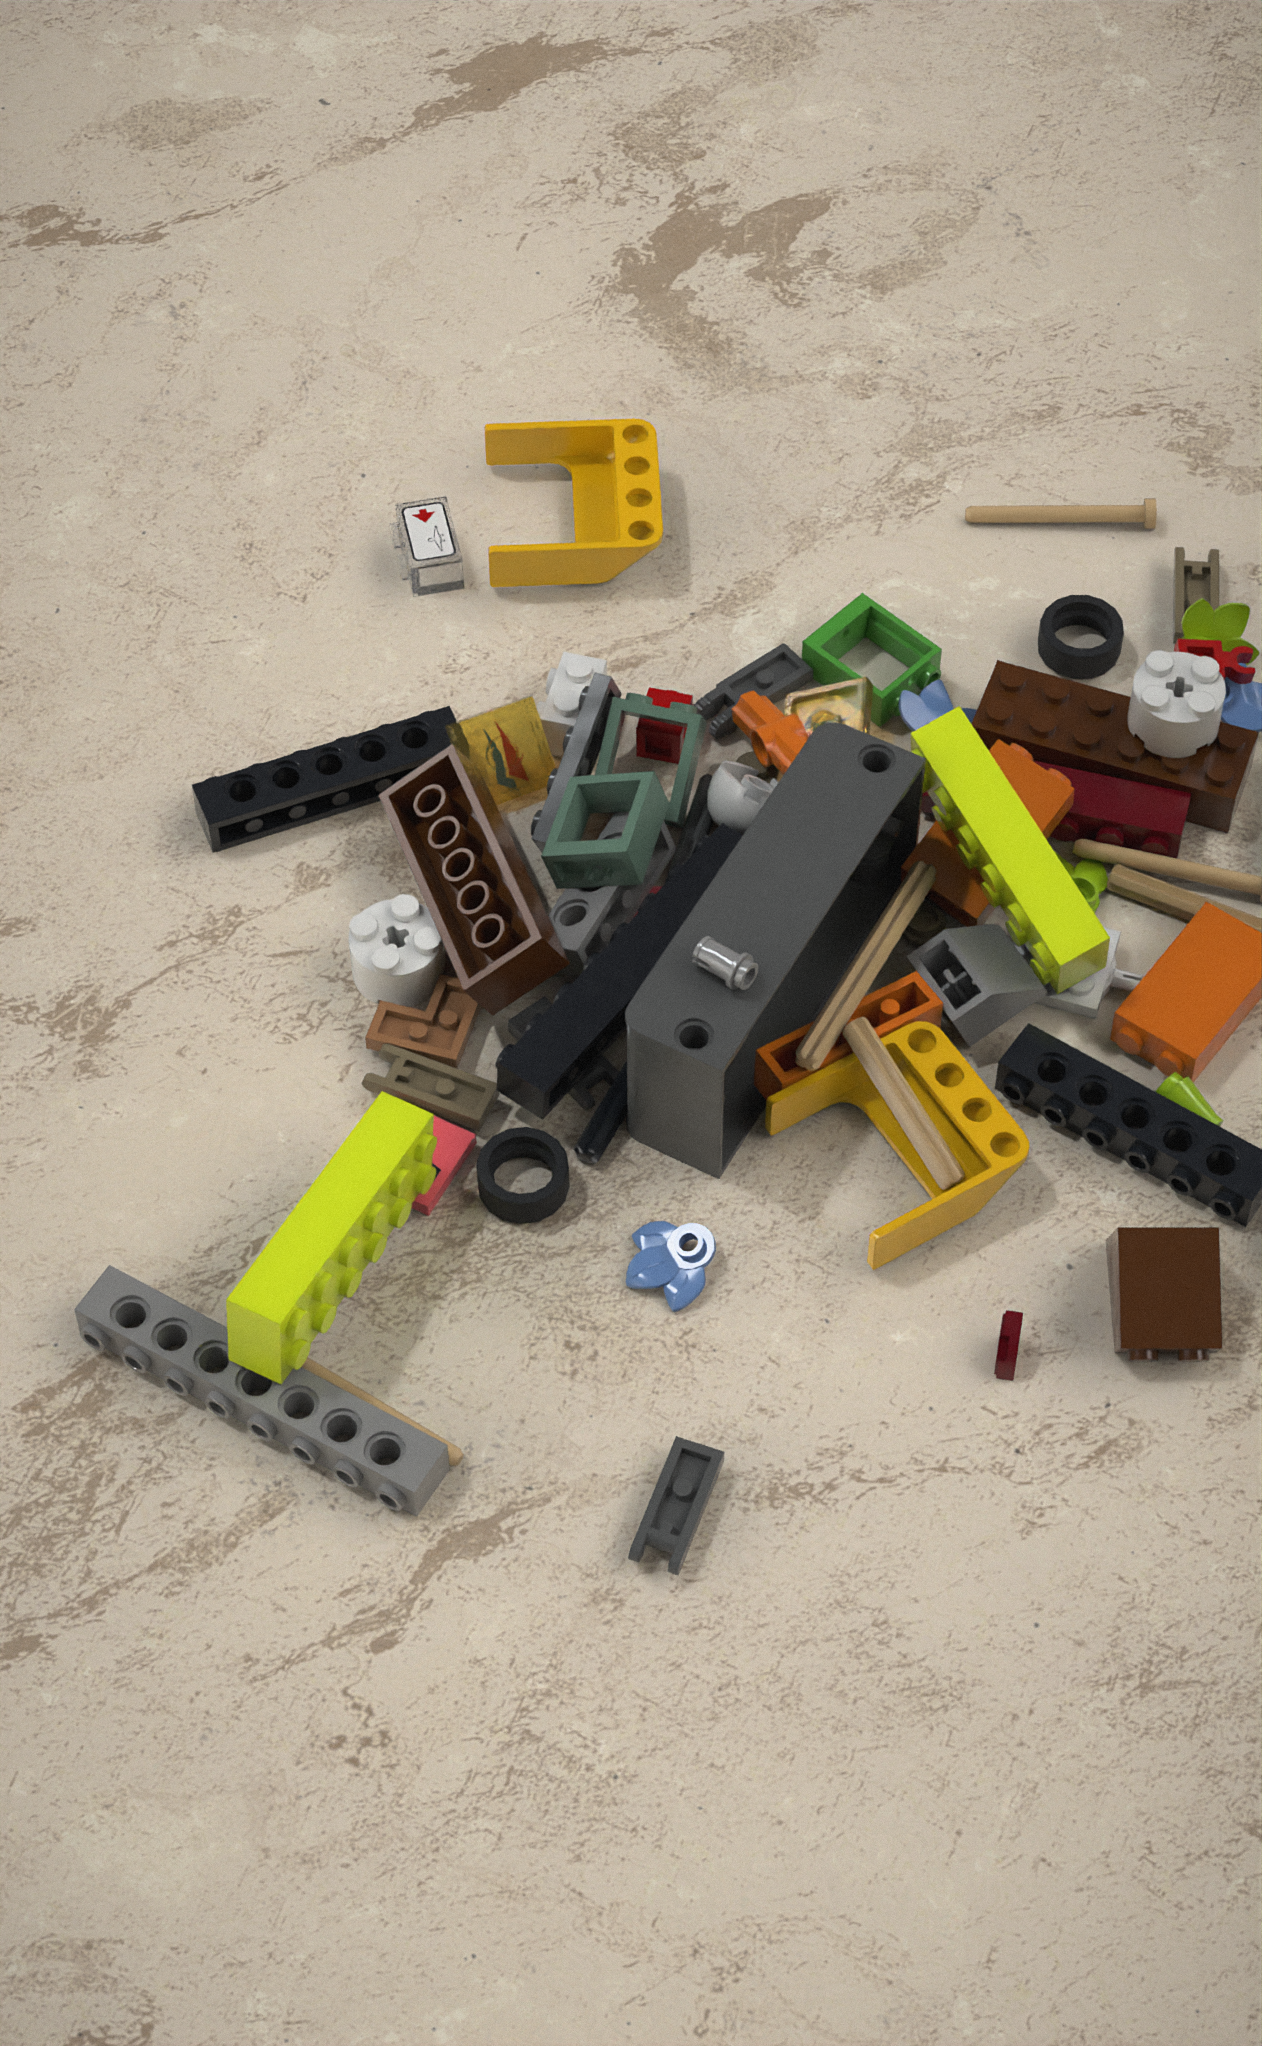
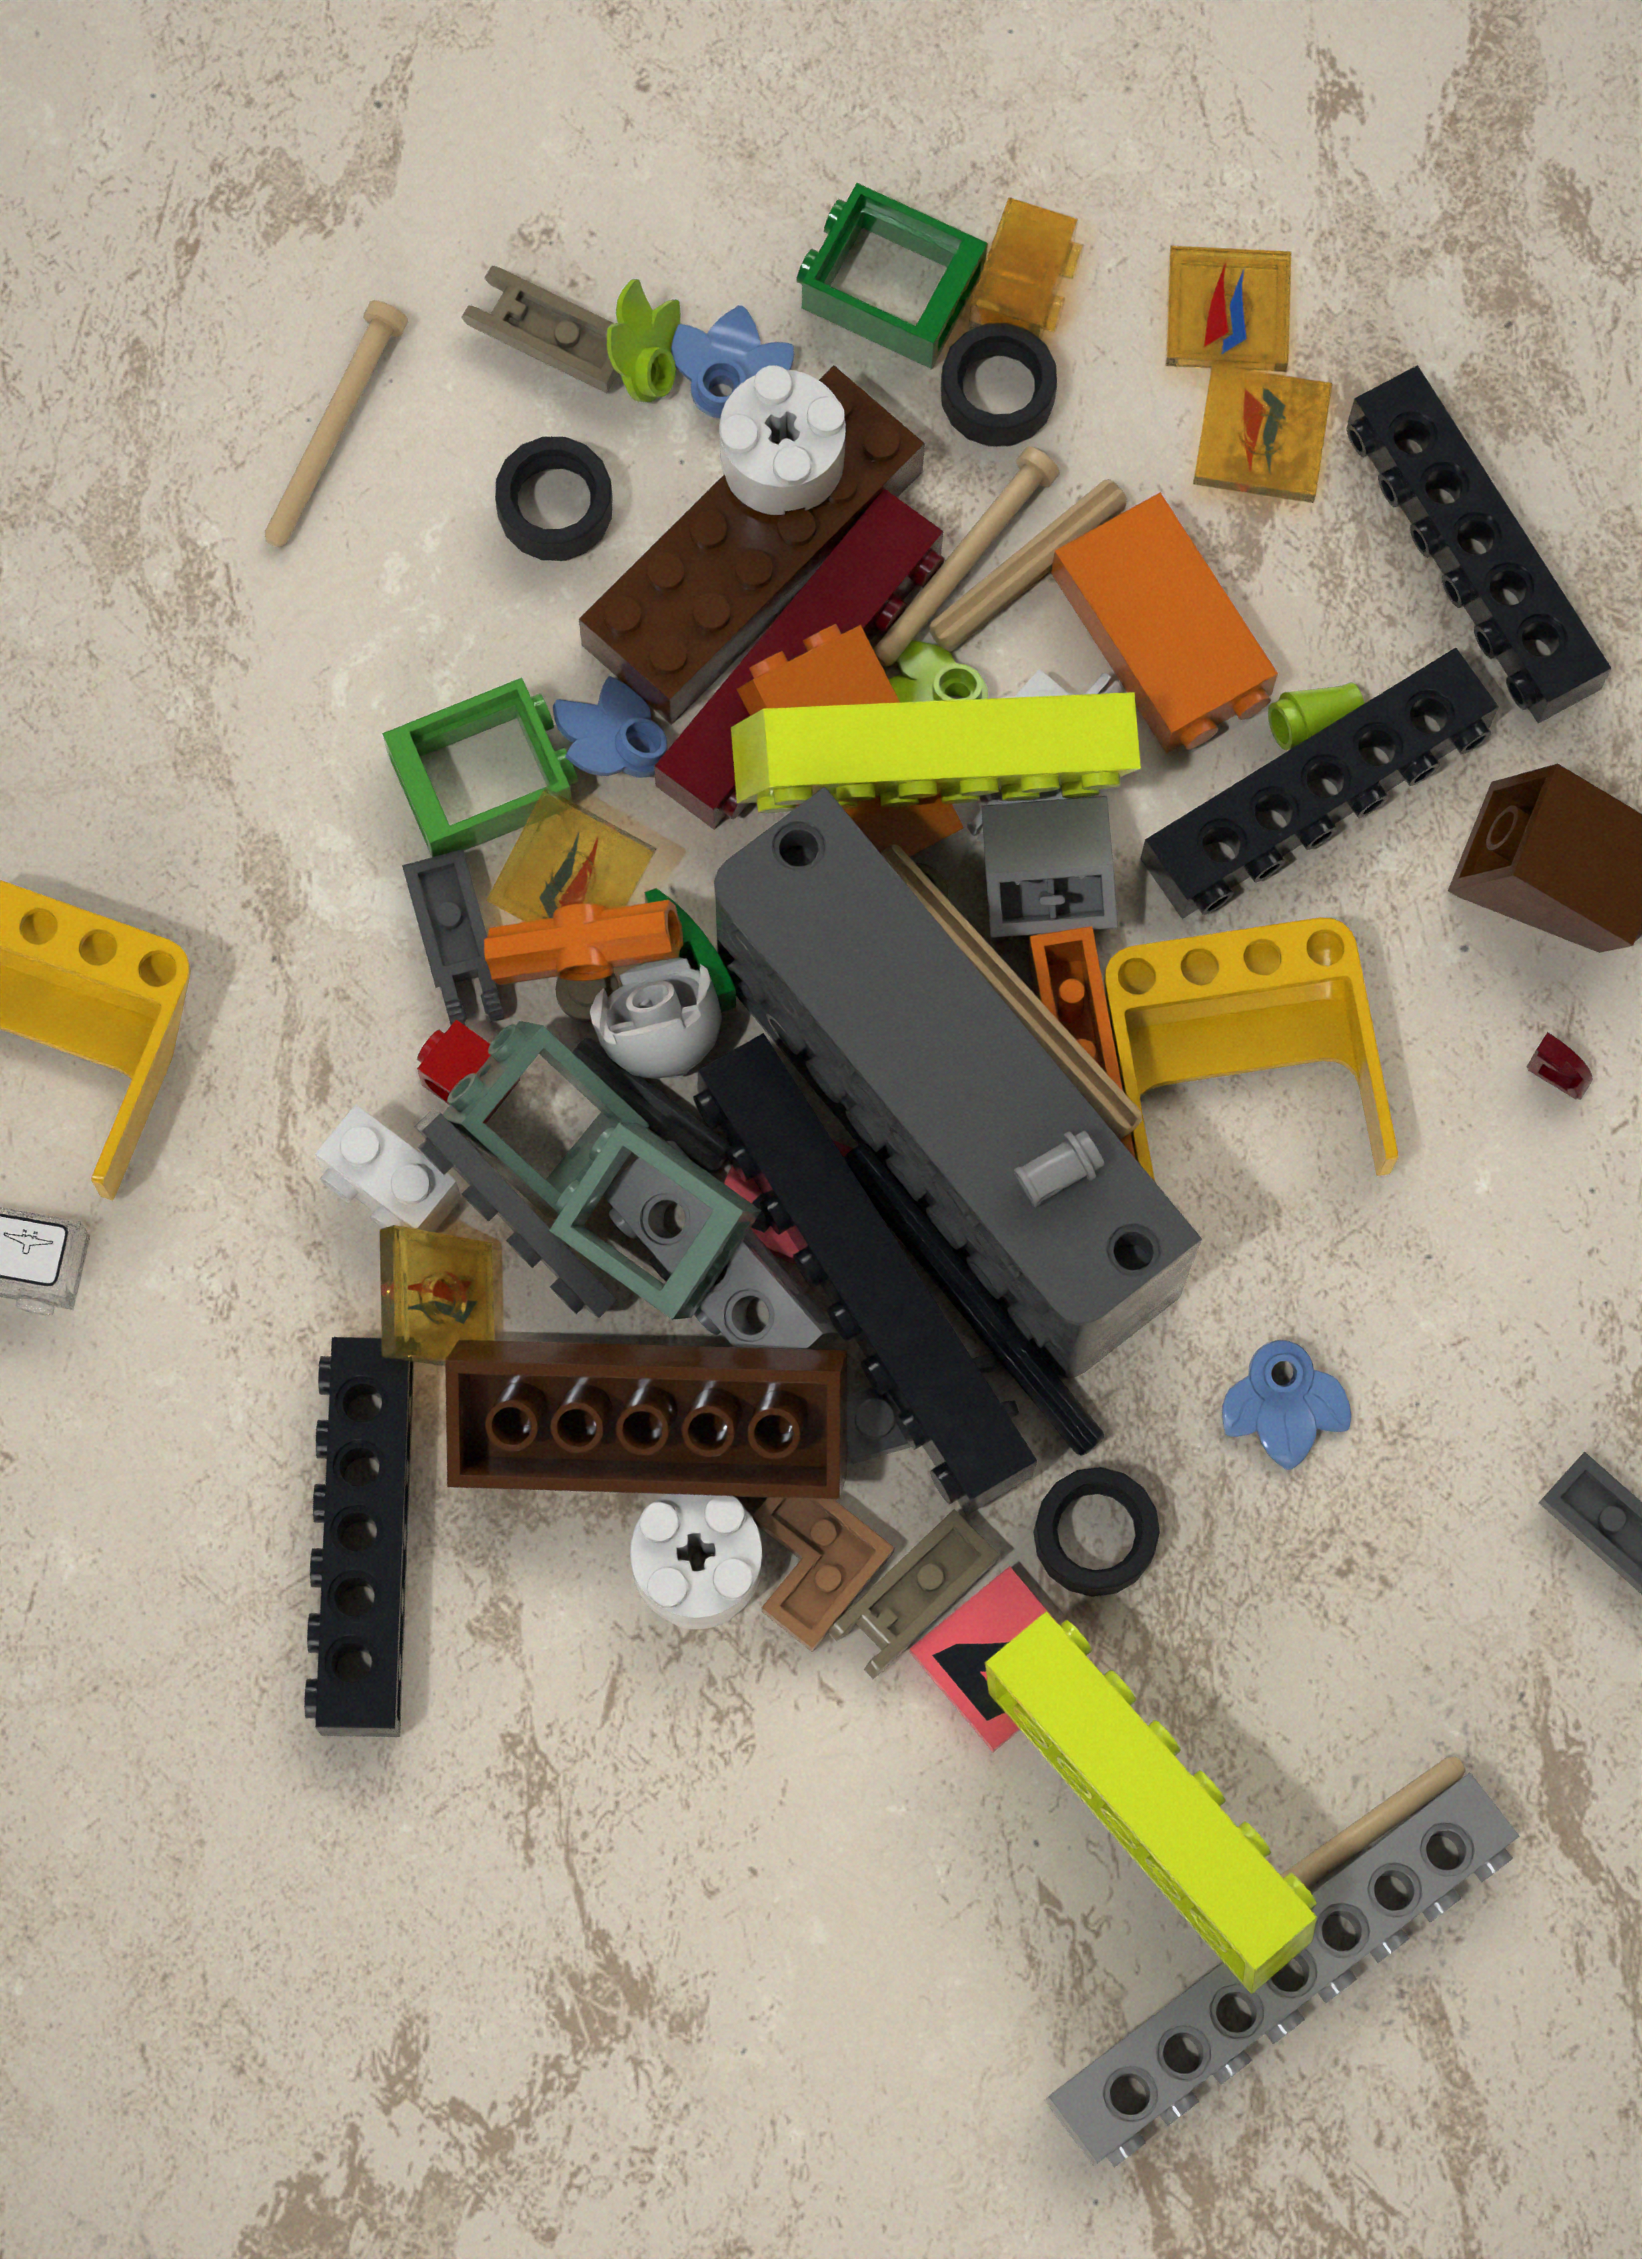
camera: 70 degrees left, 20 degrees up
(903, 1103) = (1210, 1037): tan axle -> none
(1227, 660) = (687, 371): red plate -> none

